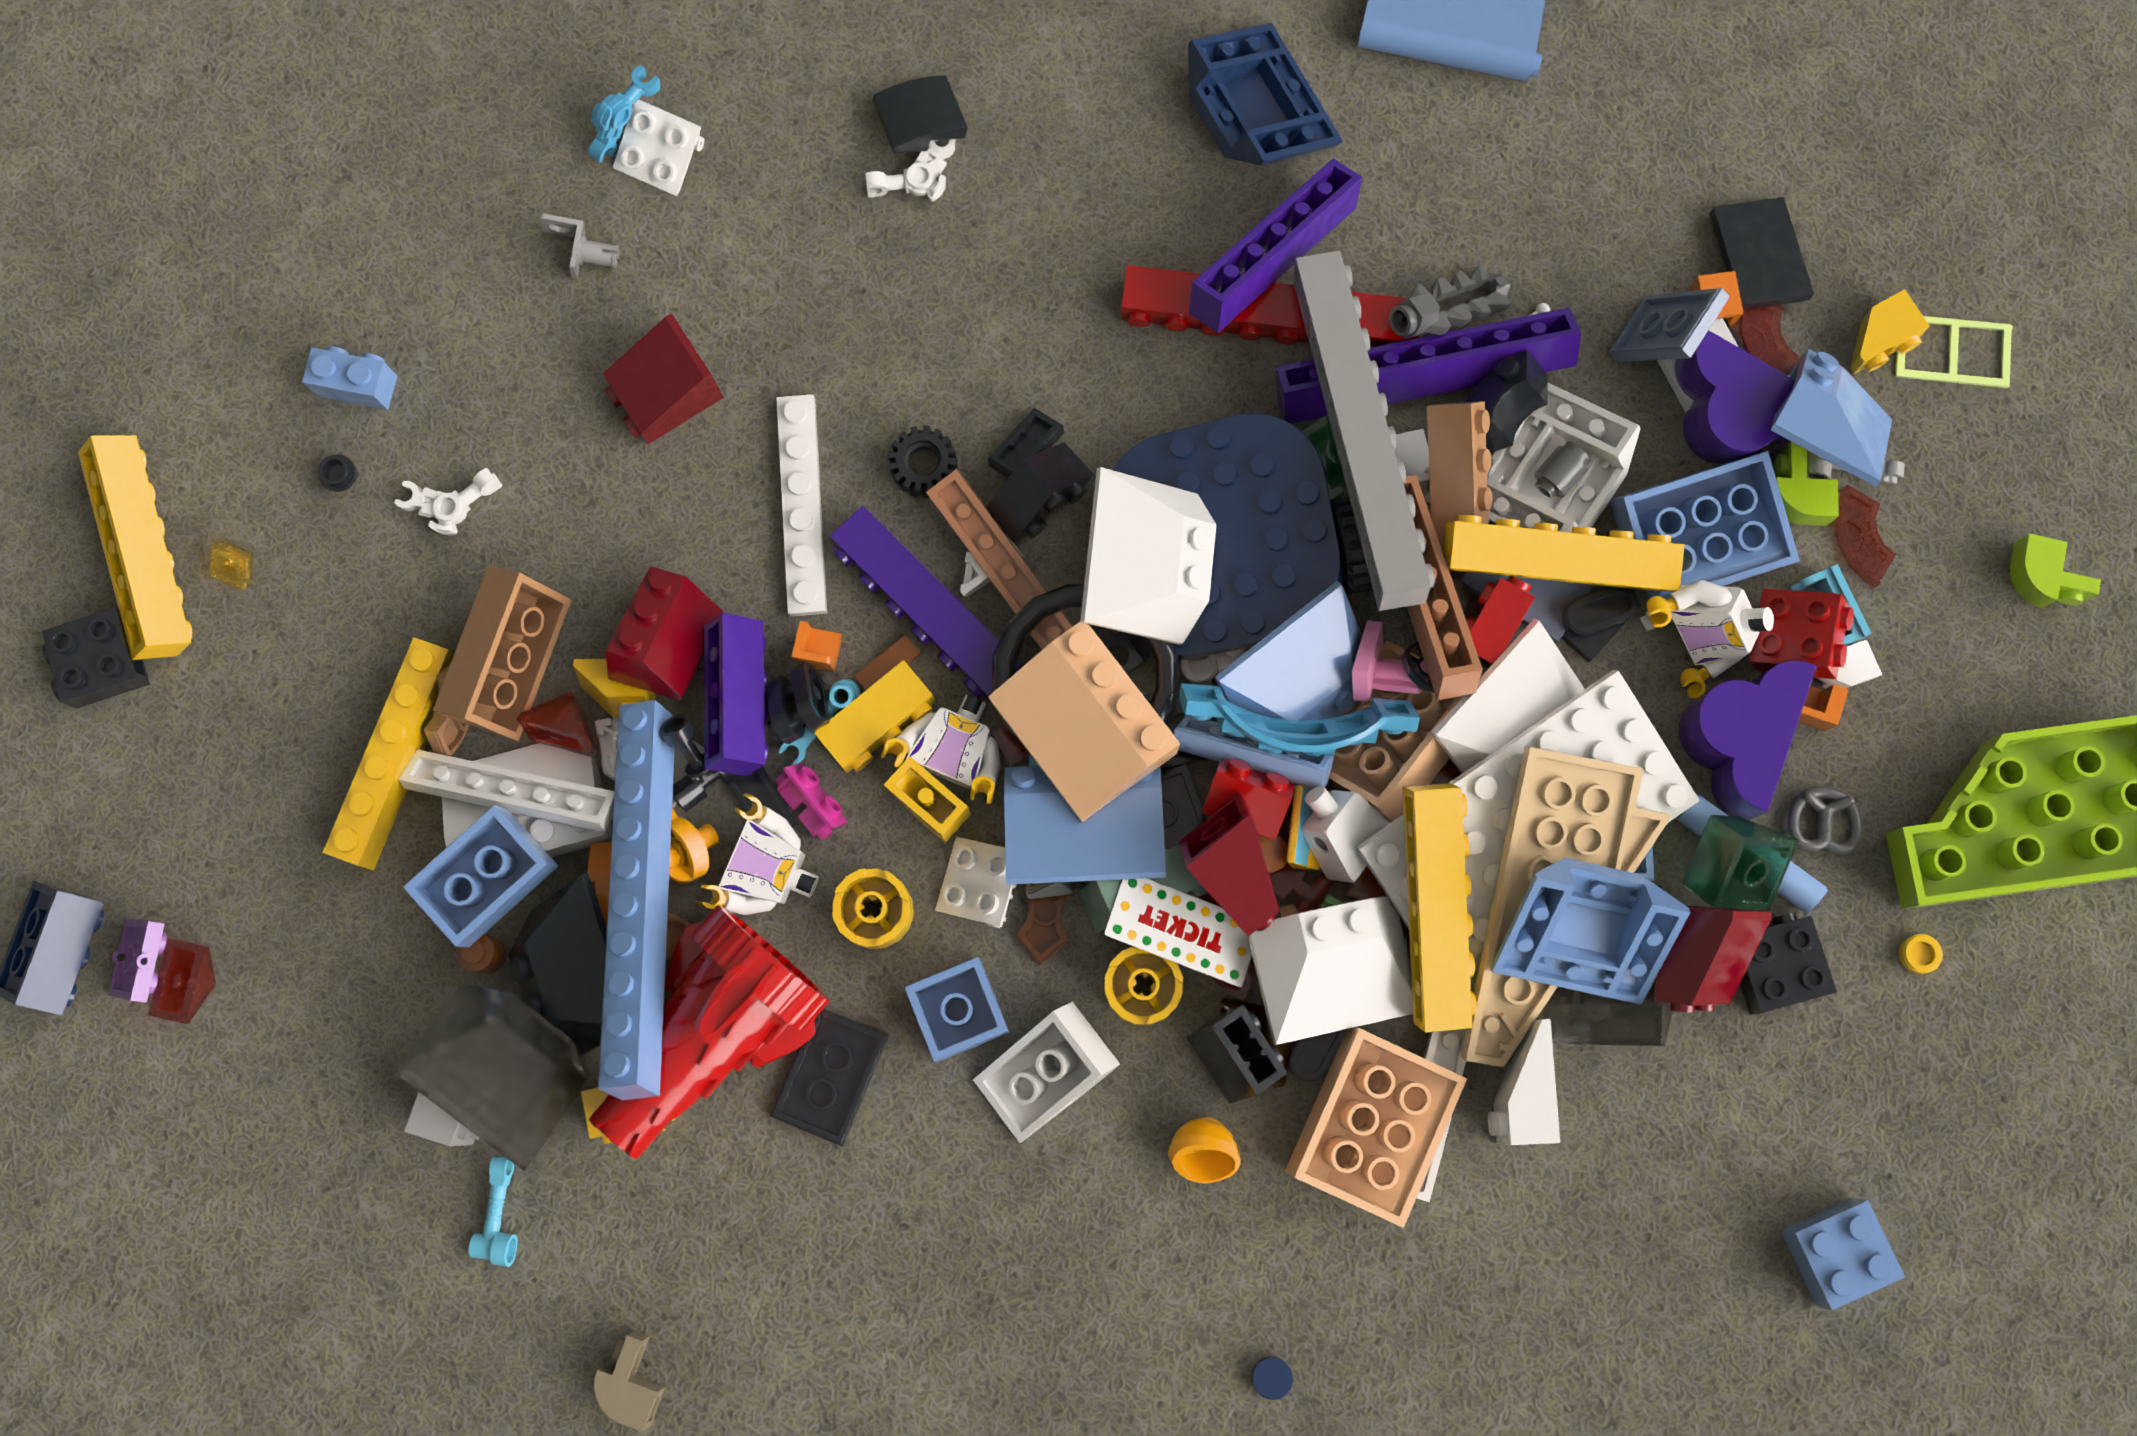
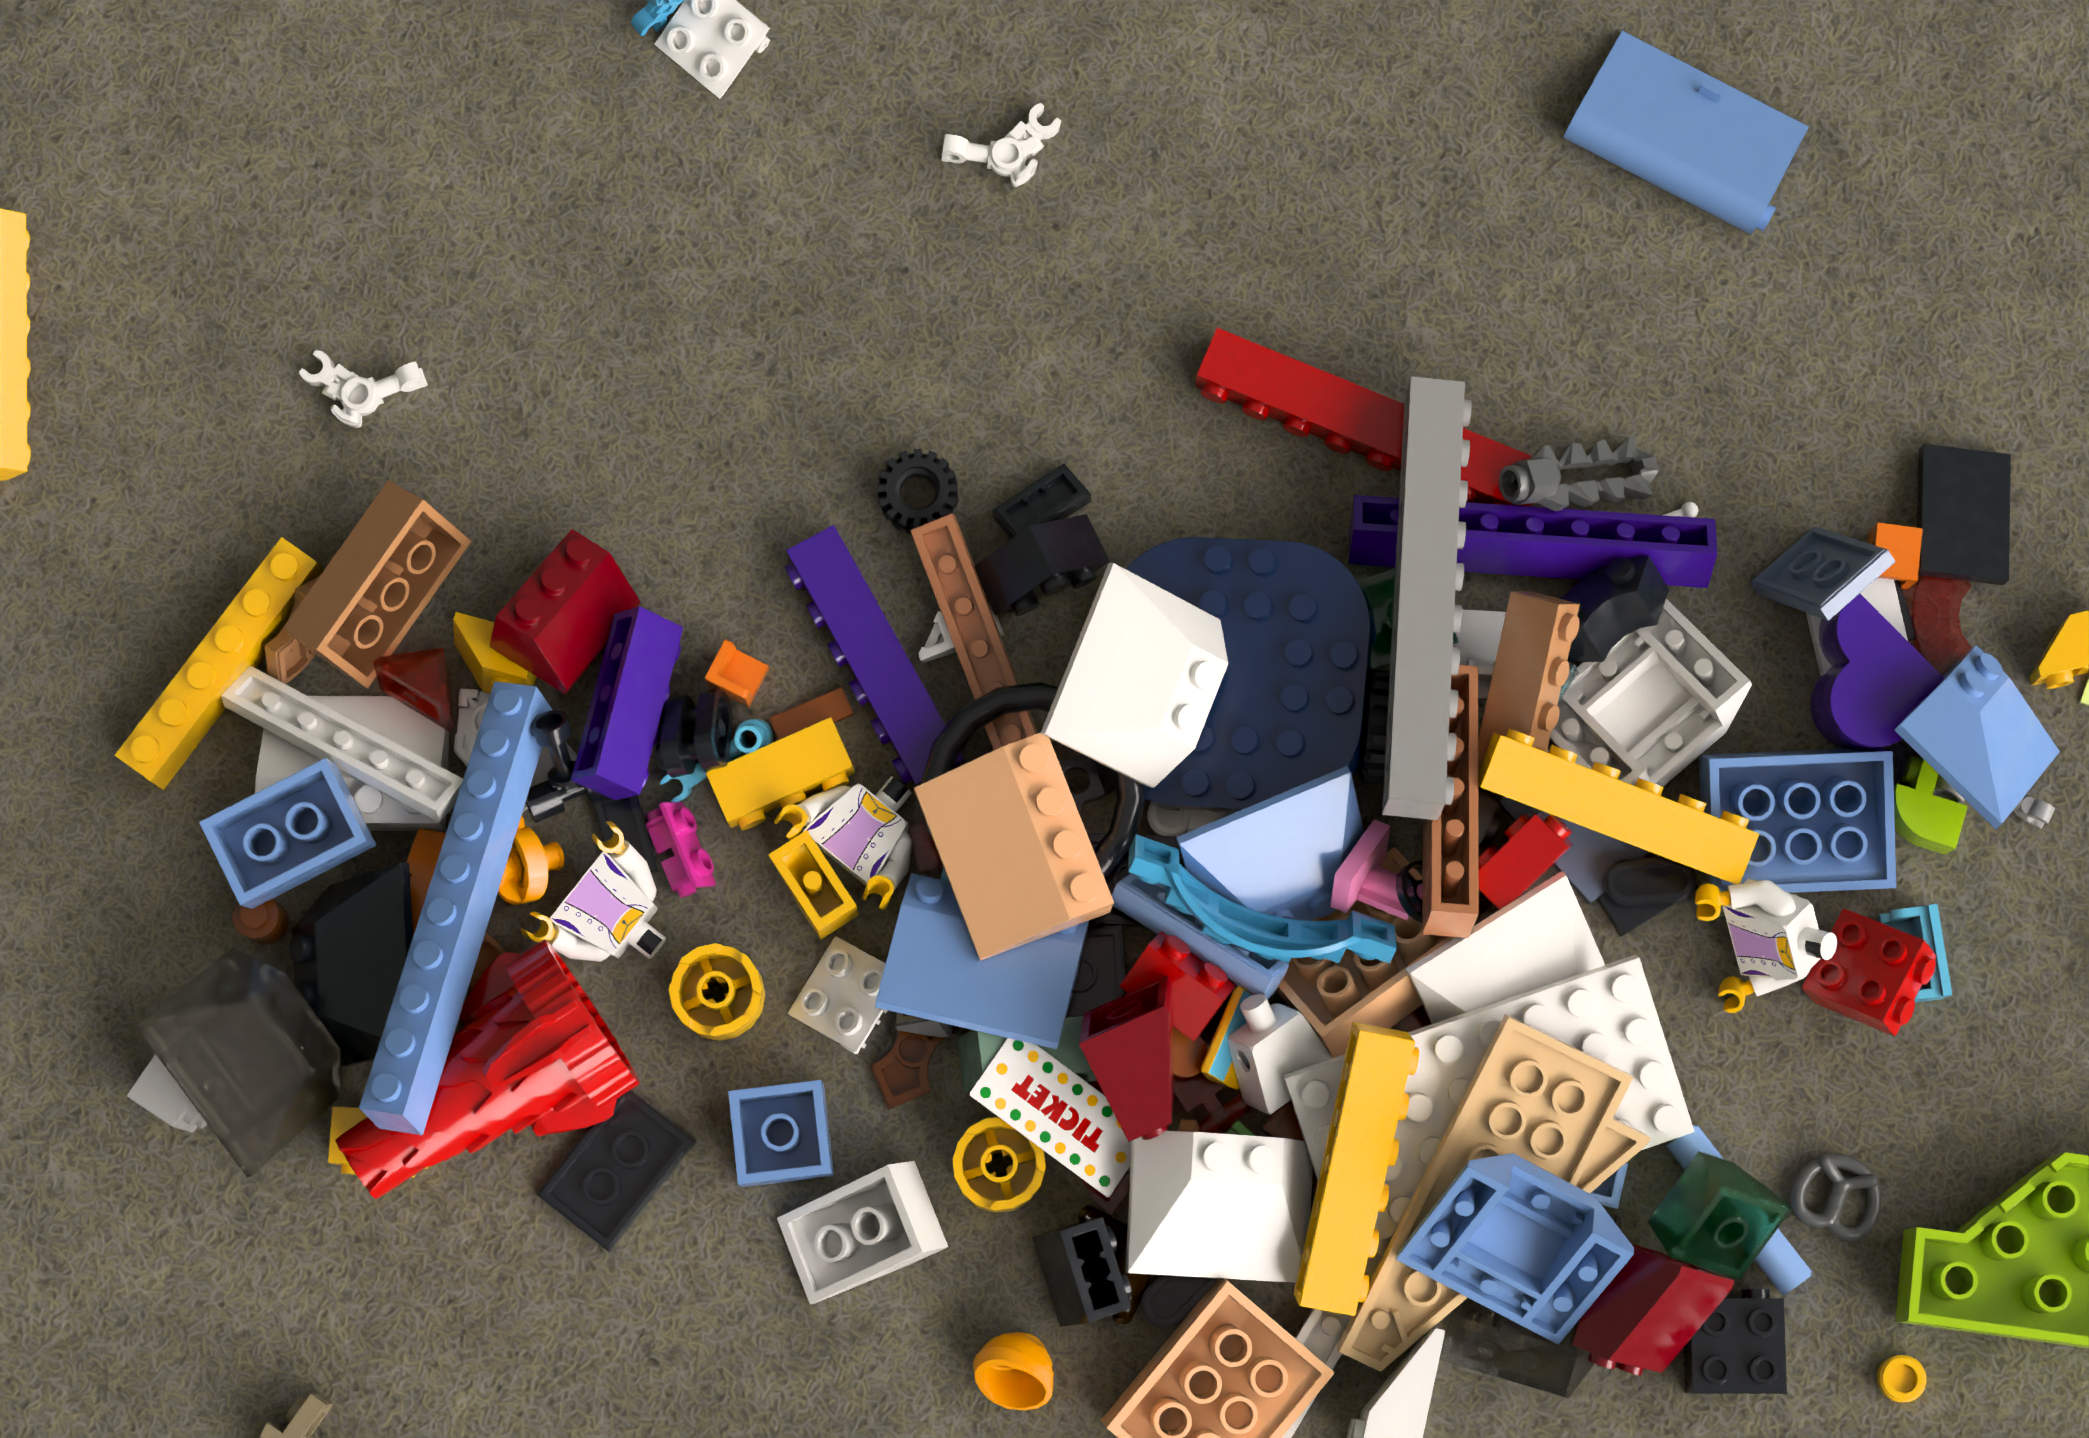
camera: 10 degrees right, 0 degrees up
(231, 564) = (95, 393): clear yellow plate -> none
(337, 473) = (242, 319): black plate -> none
(349, 377) = (287, 213): medium blue brick -> none
(493, 1244) = (187, 1250): medium azure brick -> none
(583, 249) = (594, 135): light grey bracket -> none
(661, 382) = (641, 317): dark red slope -> none
(801, 505) = (764, 503): white plate -> none
(919, 113) = (1027, 80): black slope -> none
(1256, 97) = (1427, 168): dark blue slope -> none
(1274, 245) = (1393, 353): dark purple brick -> none
(1562, 470) = (1651, 706): dark grey brick -> none
(1745, 735) = (1770, 1070): dark purple brick -> none
(1823, 707) = (1864, 1059): orange panel -> none
(1859, 536) = (1978, 878): clear red tile -> none
(1859, 667) = (1927, 1028): white slope -> none

